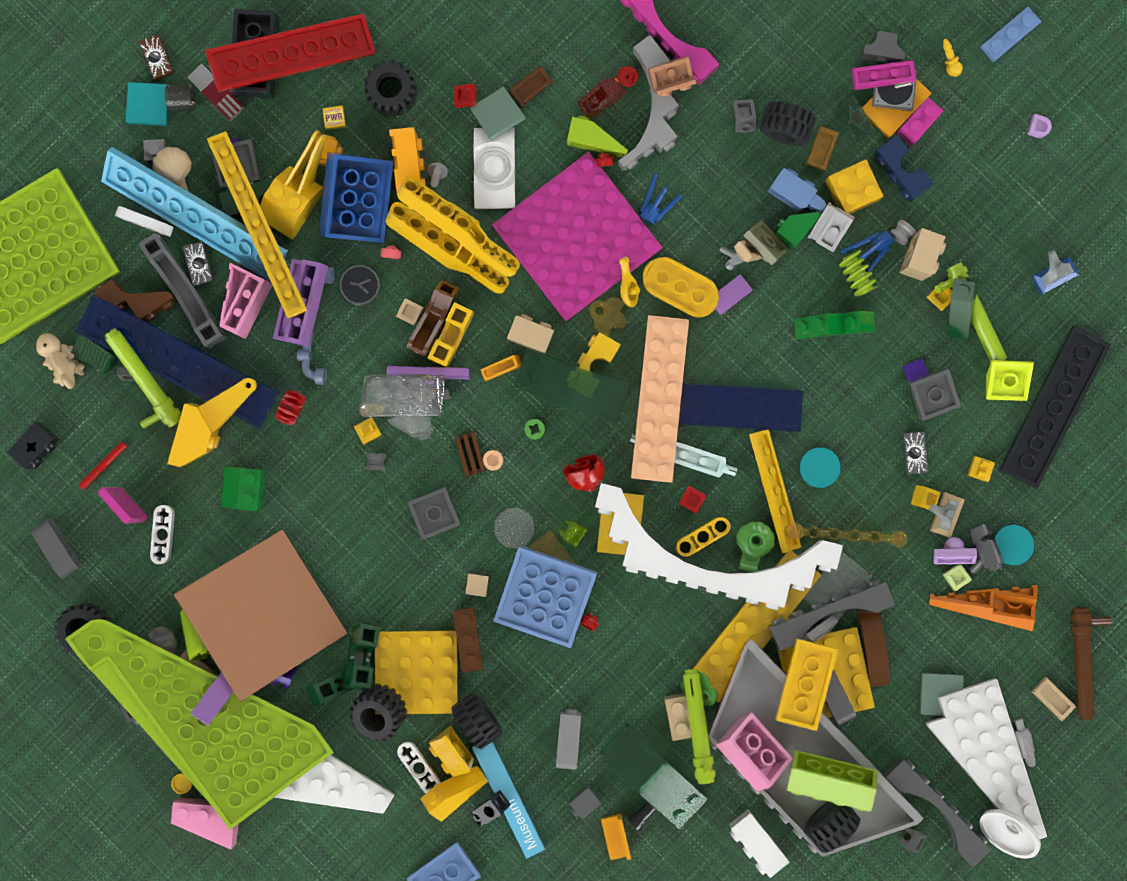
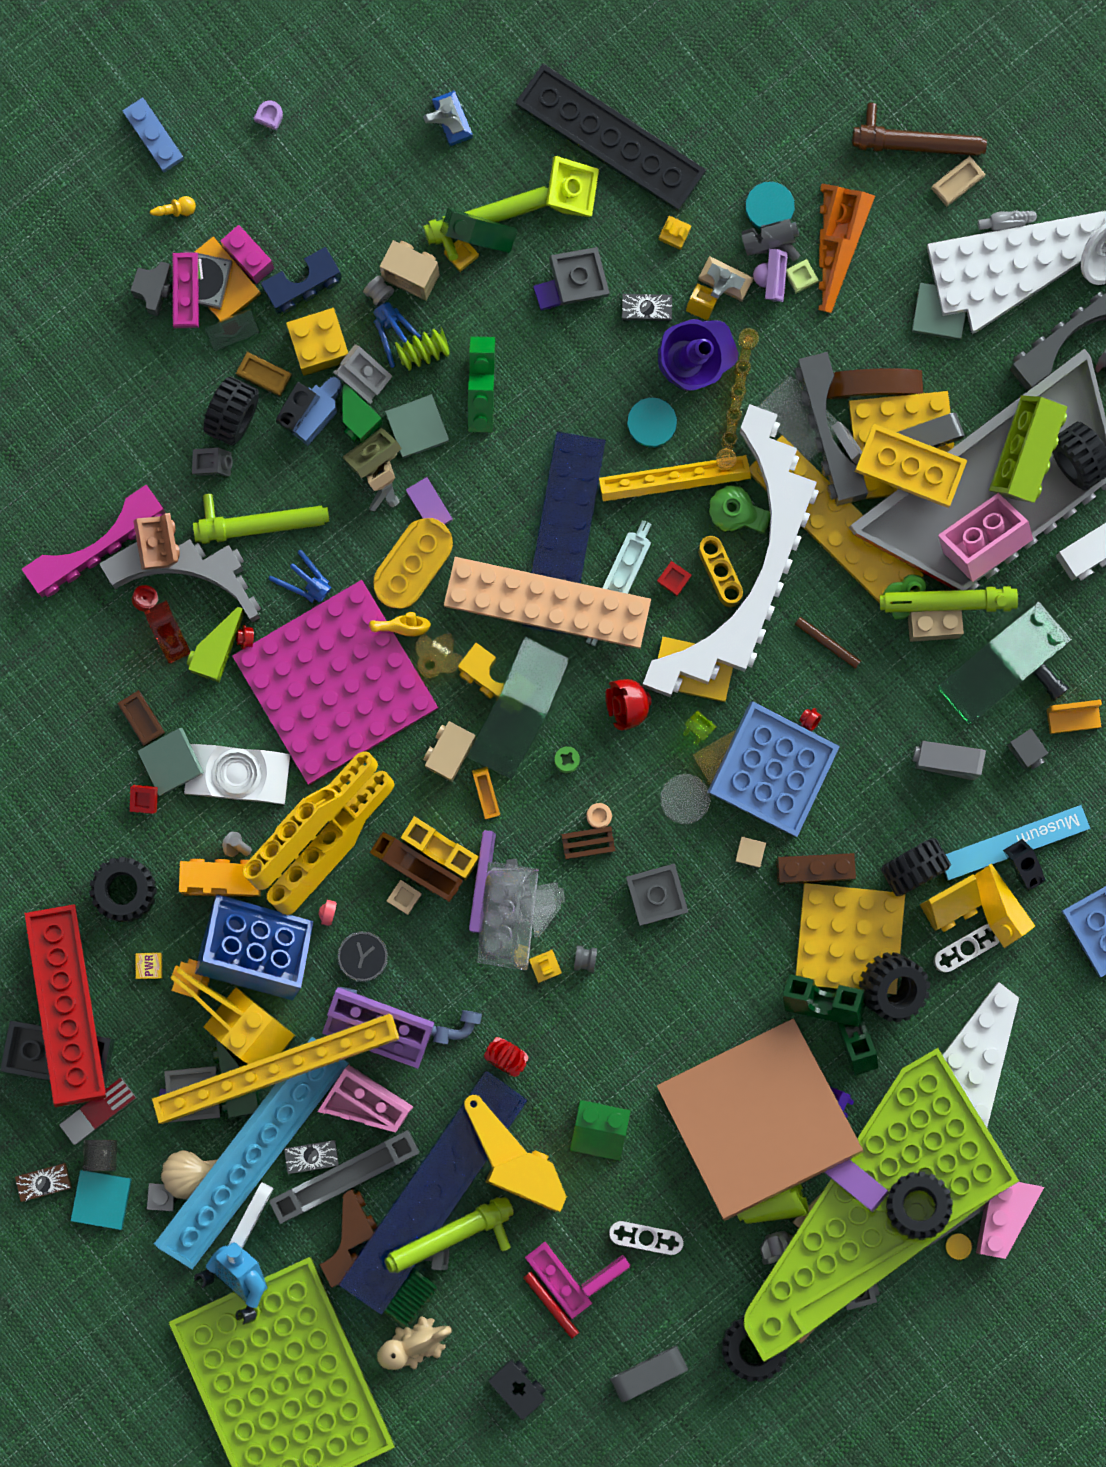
camera: 90 degrees left, 5 degrees down
(96, 218) = (240, 1274): none -> dark azure torso
(124, 466) = (558, 1280): none -> dark pink tile
(180, 756) = (929, 1185): none -> black tyre
(654, 629) = (827, 642): none -> reddish brown bar
(690, 130) = (220, 529): none -> lime cylinder
(793, 277) = (417, 426): none -> sand green tile
(796, 176) = (296, 407): none -> black leg
(881, 497) = (696, 353): none -> dark purple piece

